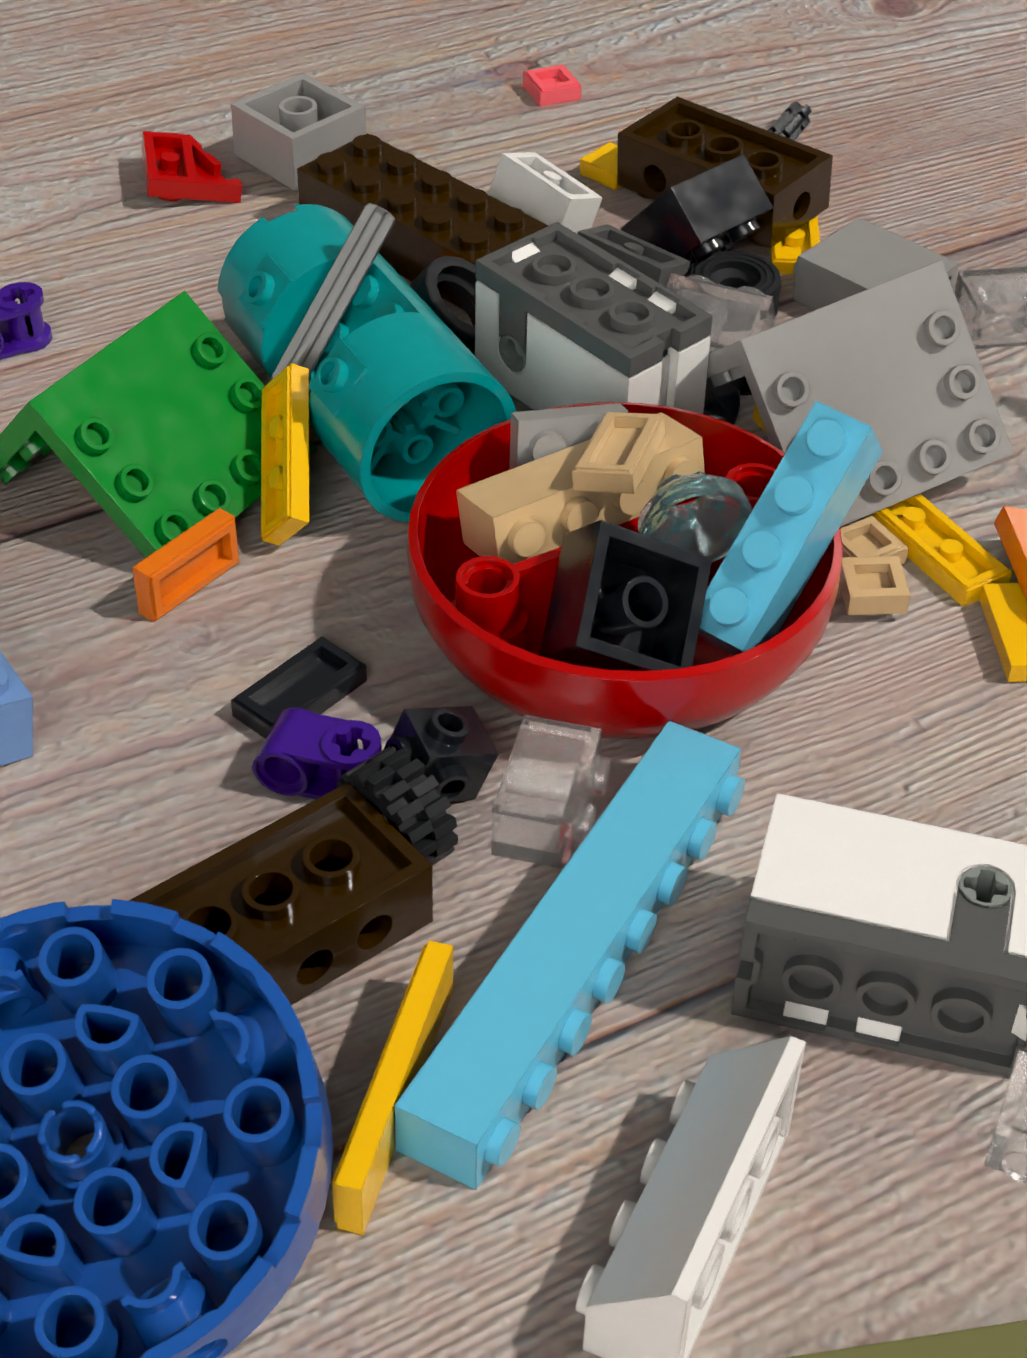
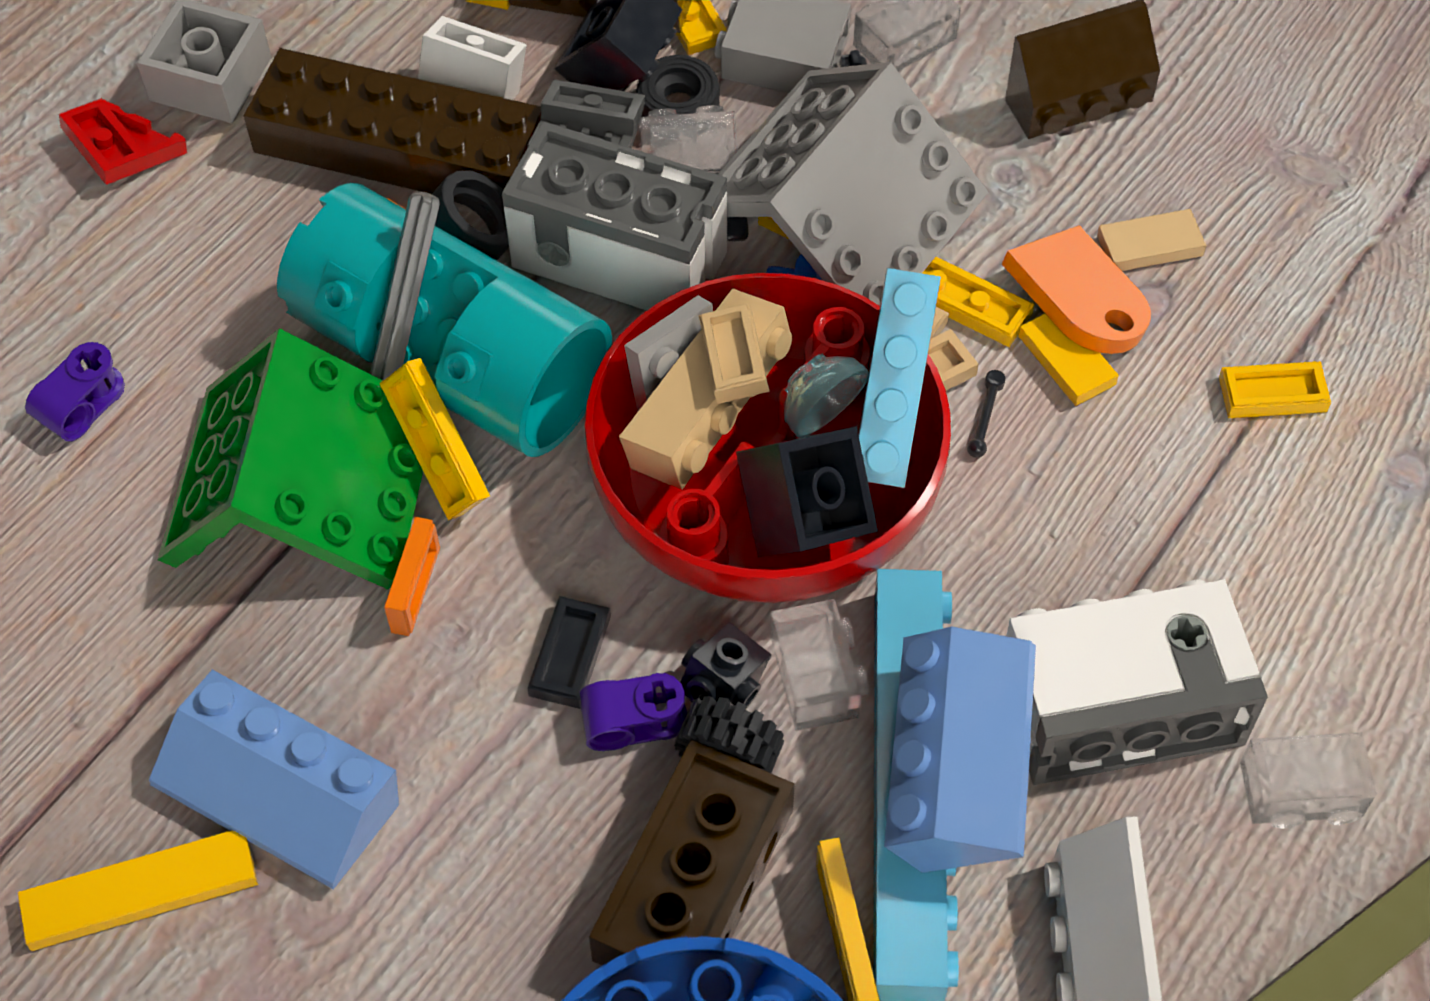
camera: 25 degrees left, 15 degrees up
(630, 893) = (961, 749): none -> medium blue slope
(925, 628) = (994, 382): none -> black hinge

